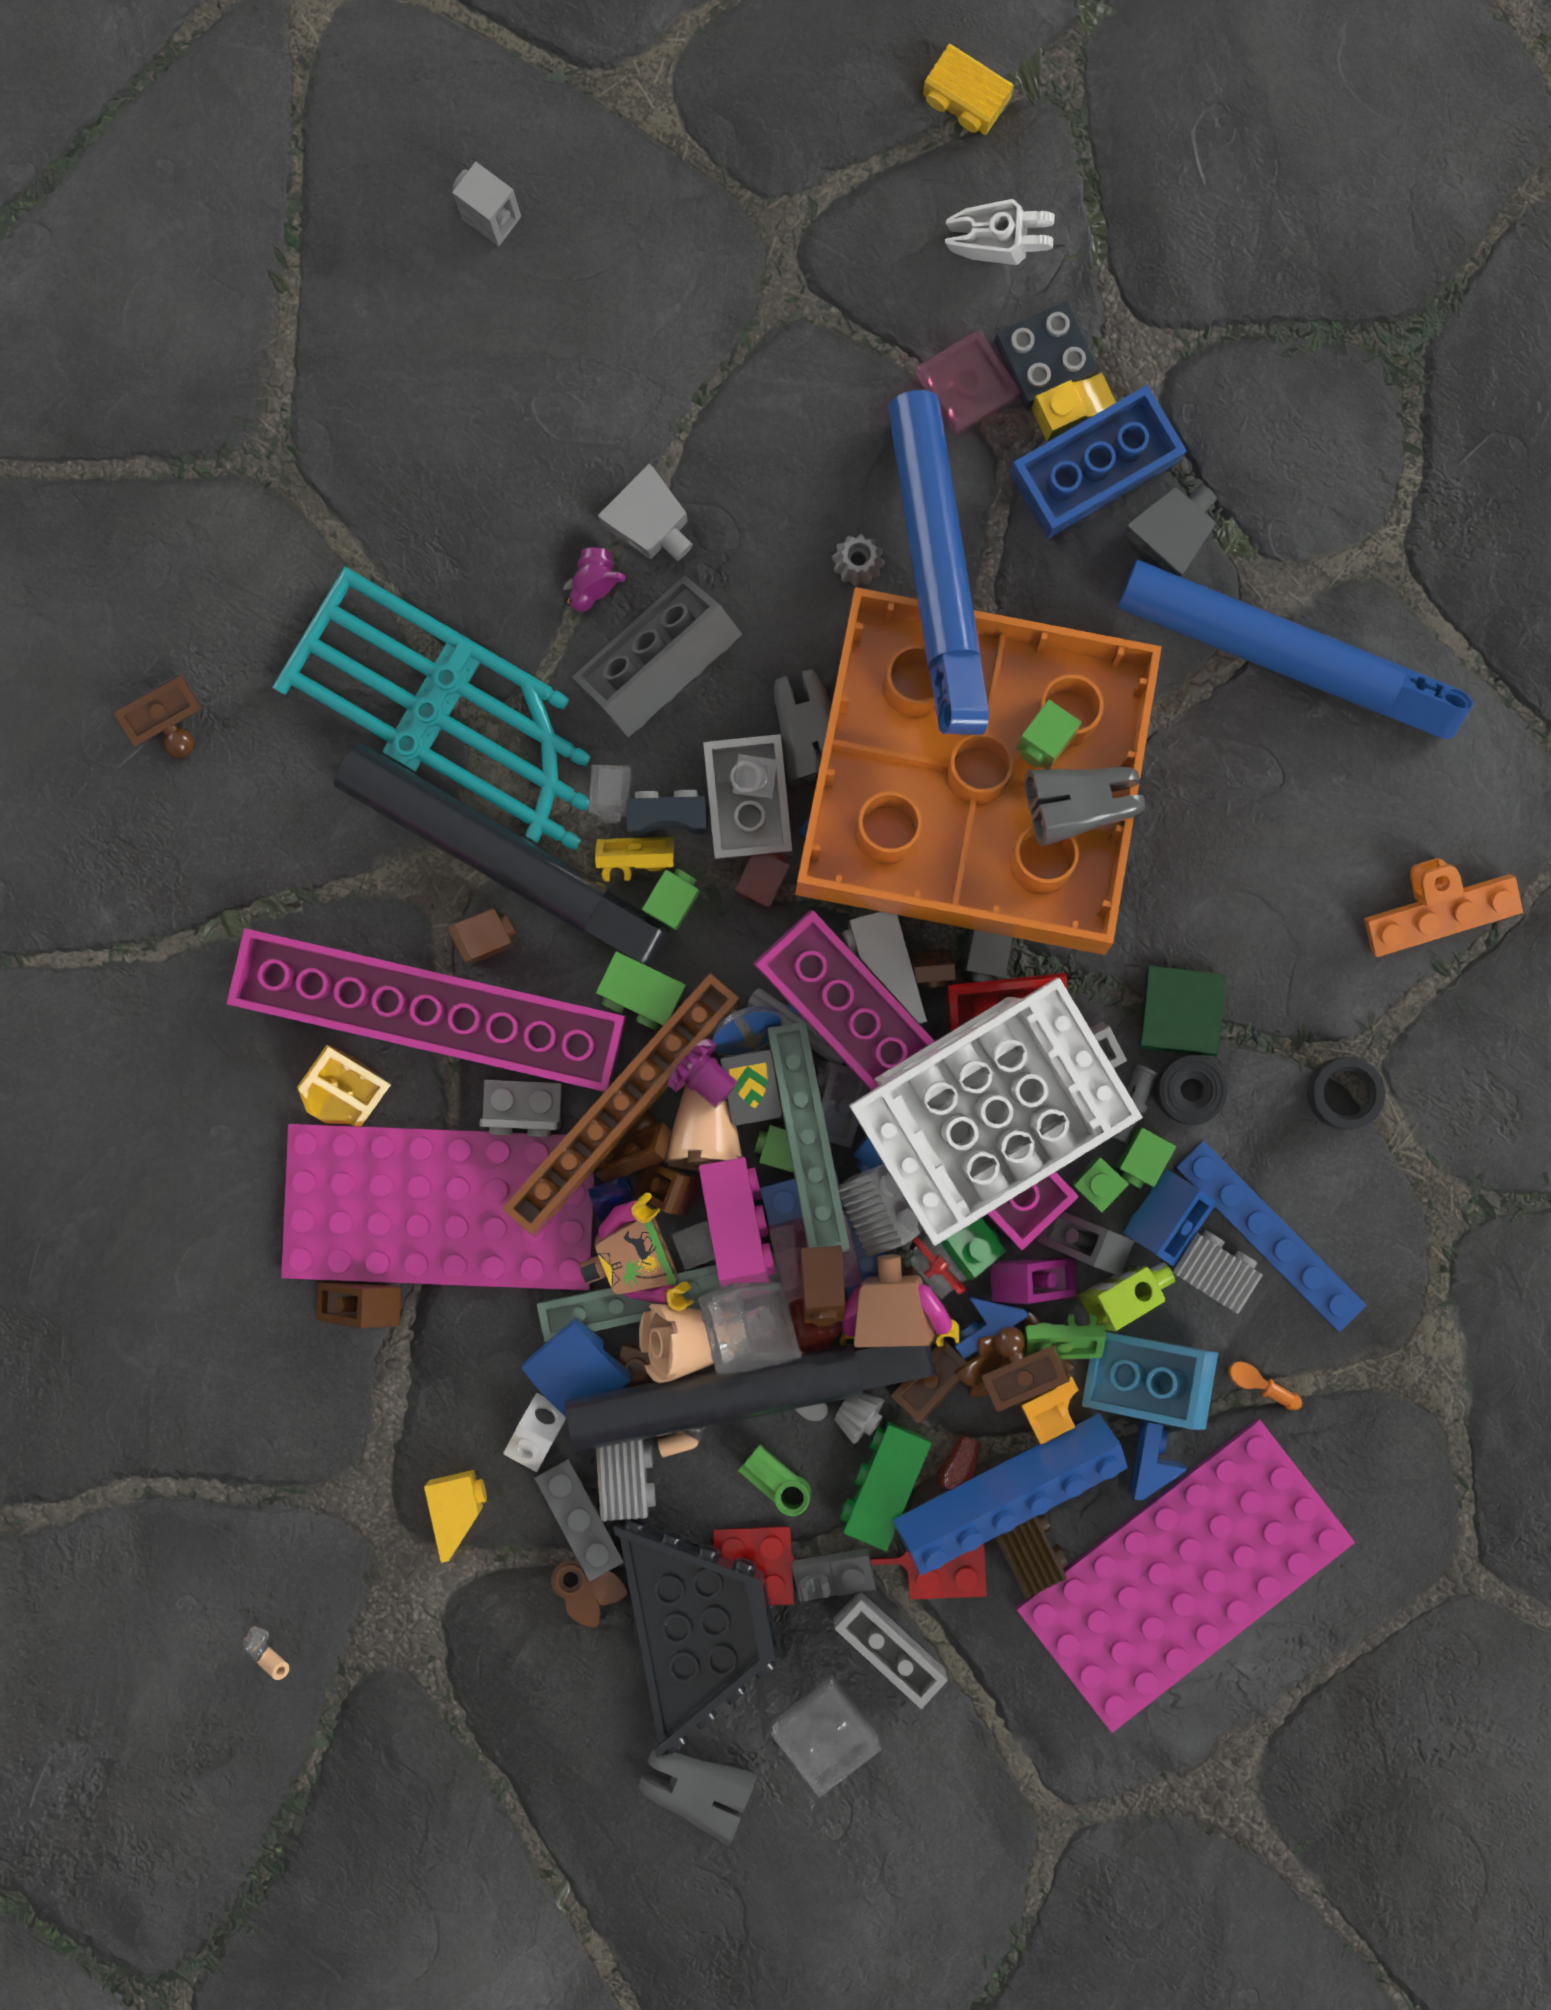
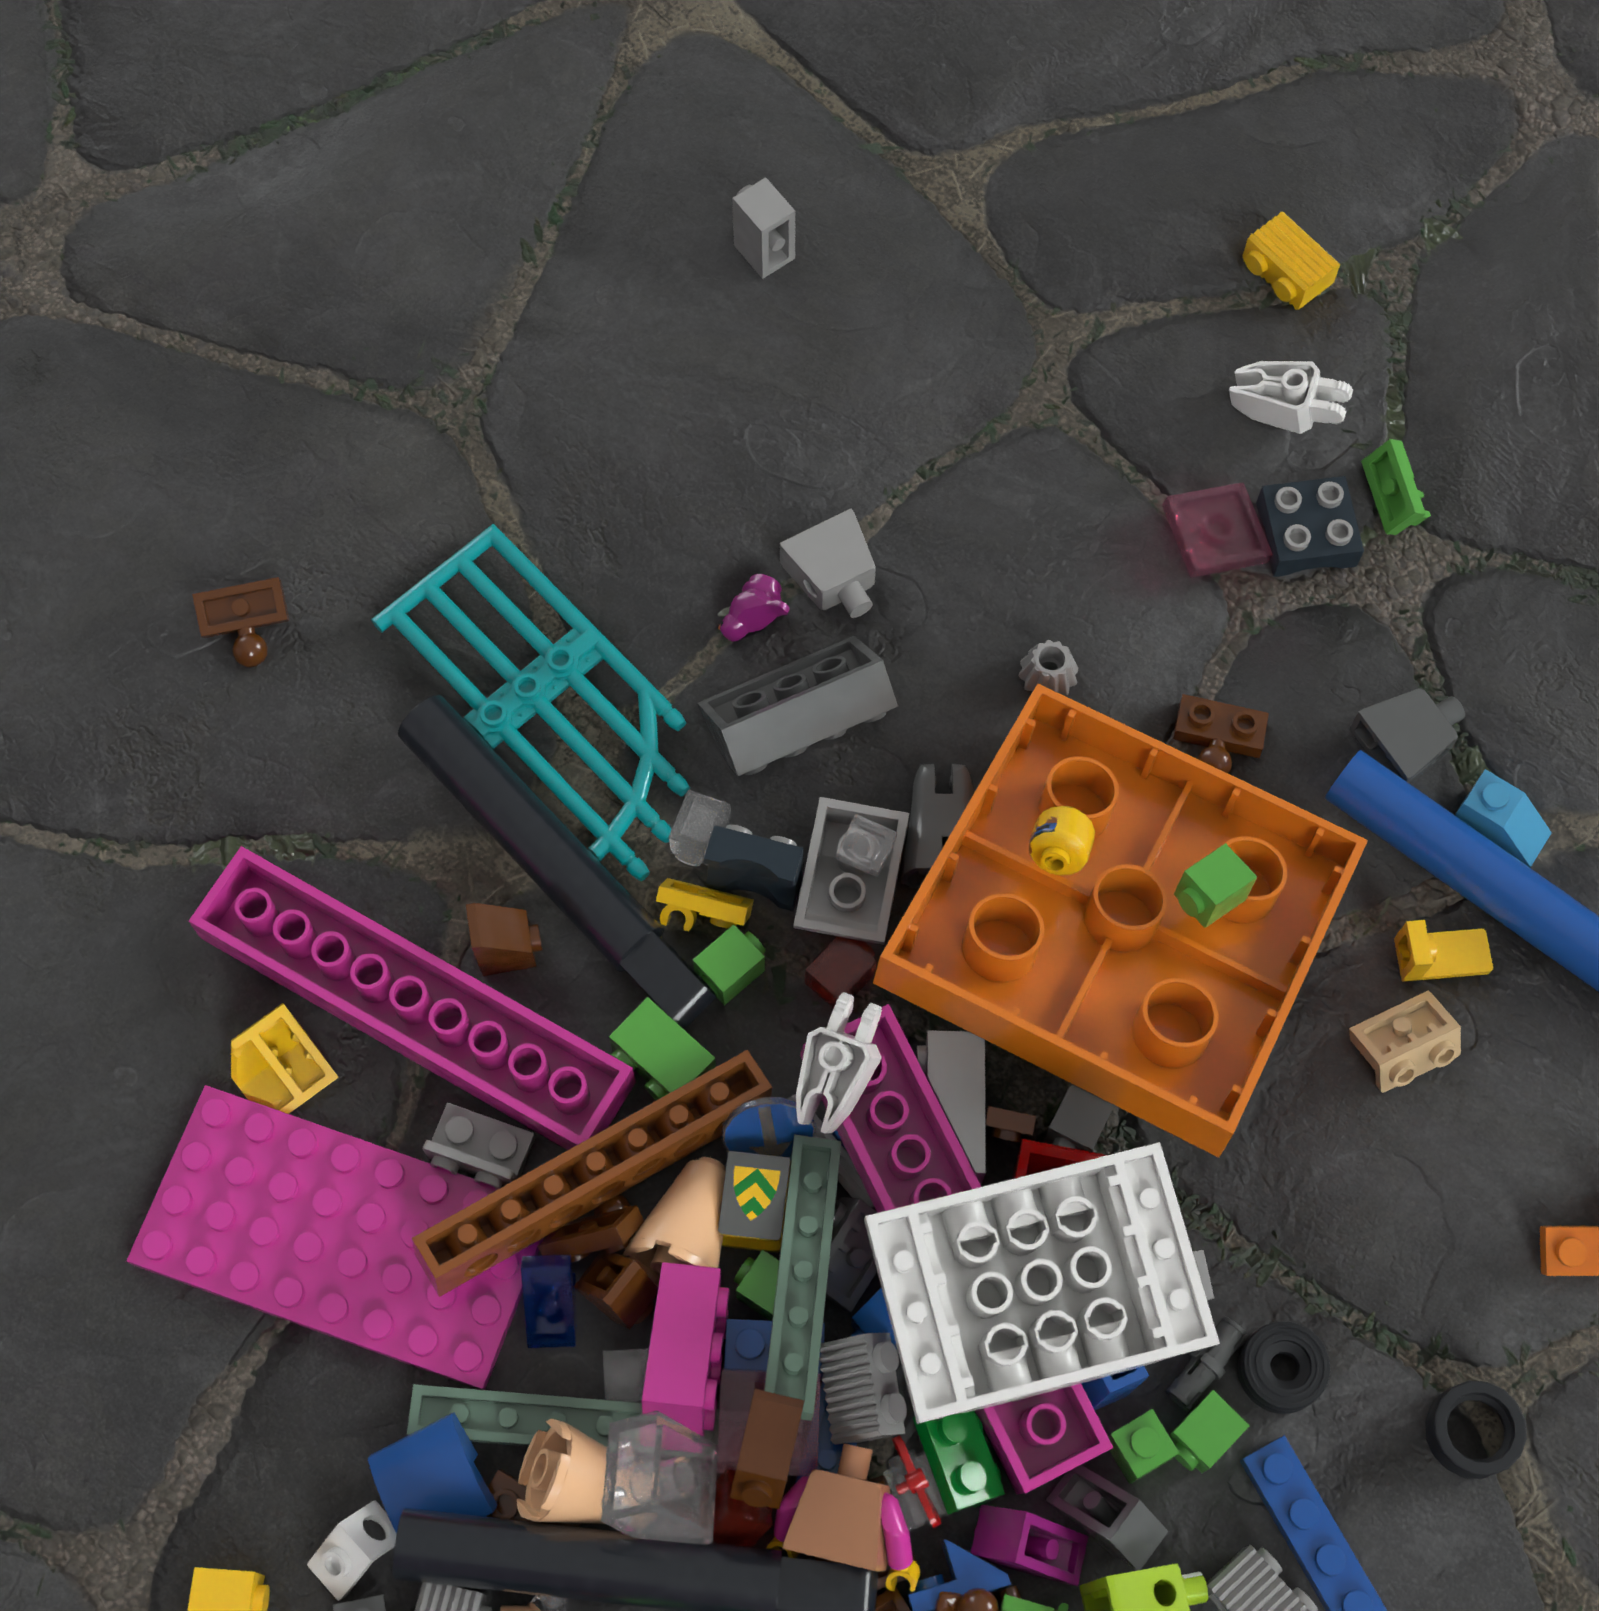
camera: 15 degrees right, 20 degrees down
(358, 1304) = (204, 1319): reddish brown slope -> none
(635, 1257) = (551, 1354): torso -> none
(703, 1074) = (701, 1157): magenta gear -> none
(789, 978) = (837, 1065): none -> white hinge
(914, 735) = (1061, 840): none -> yellow head
(938, 563) = (1137, 685): blue piece -> none
(1014, 569) = (1220, 729): none -> reddish brown plate
(1071, 404) = (1324, 582): yellow arch -> none
(1079, 800) = (1233, 964): dark grey piece -> none
(1097, 461) = (1340, 640): blue brick -> none
(1110, 296) = (1394, 487): none -> bright green plate
(1169, 1217) = (1220, 1515): blue brick -> none
(1182, 1011) = (1295, 1270): dark green slope -> none
(1229, 798) = (1408, 1040): none -> tan bracket
(1242, 715) = (1441, 953): none -> yellow bracket
(1266, 583) = (1505, 817): none -> dark azure slope

